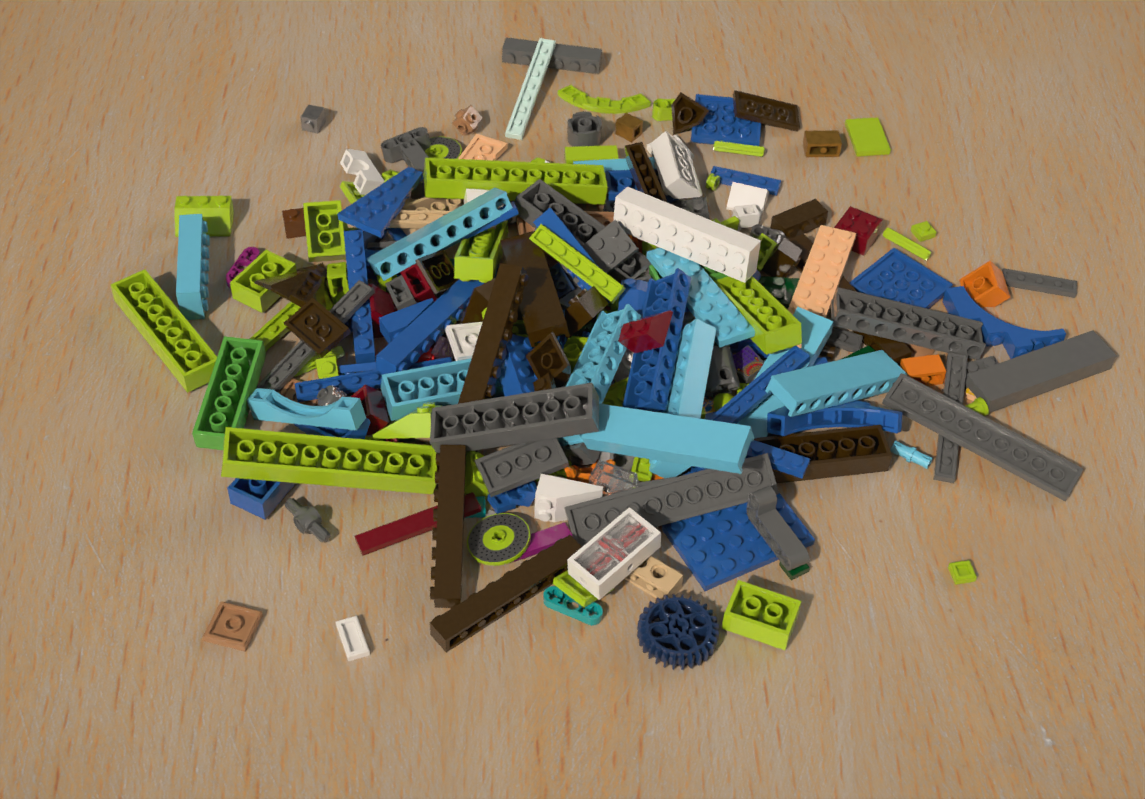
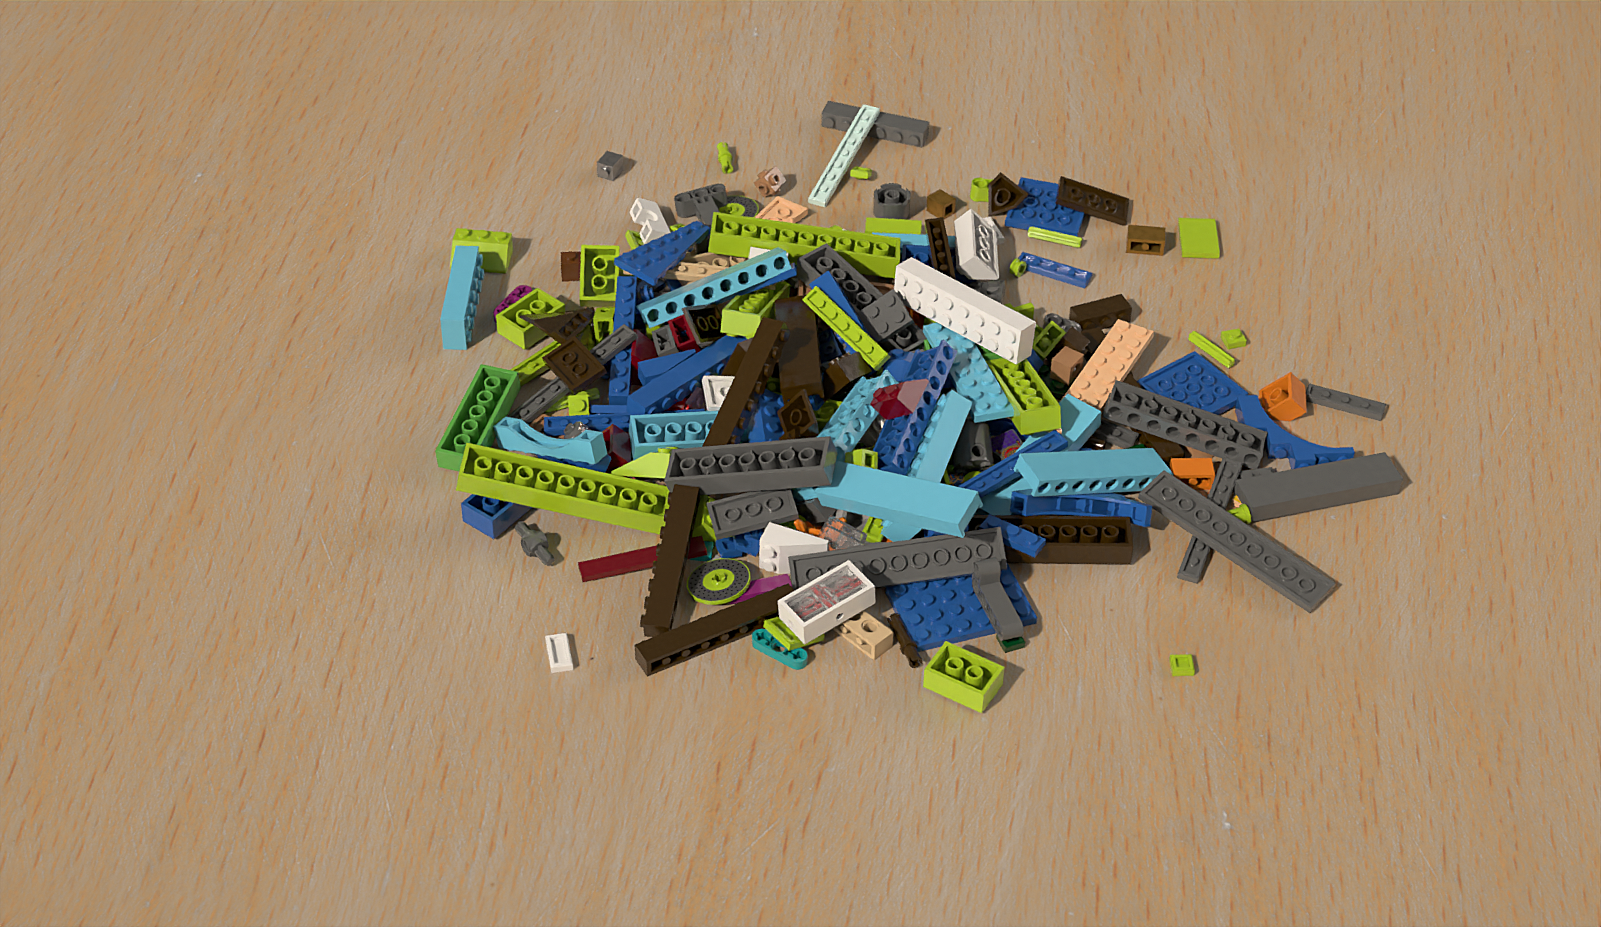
camera: 10 degrees right, 5 degrees down
(165, 329) = (424, 353): lime brick -> none
(232, 626) = (446, 629): medium nougat tile -> none
(373, 245) = (646, 293): none -> blue plate
(419, 101) = (725, 158): none -> lime pin
(548, 103) = (861, 172): none -> lime tile
(603, 105) = (919, 179): lime tile -> none
(621, 398) = (862, 458): none -> lime brick
(681, 631) = (877, 682): dark blue gear -> none
(697, 586) = (907, 646): none -> dark brown pin
(746, 195) = (1051, 288): white slope -> none
(747, 215) = (1044, 304): white brick -> none
(783, 275) = (1066, 365): none -> medium nougat piece
(864, 225) = (1167, 327): dark red brick -> none
(911, 454) = (1159, 551): medium azure pin -> none

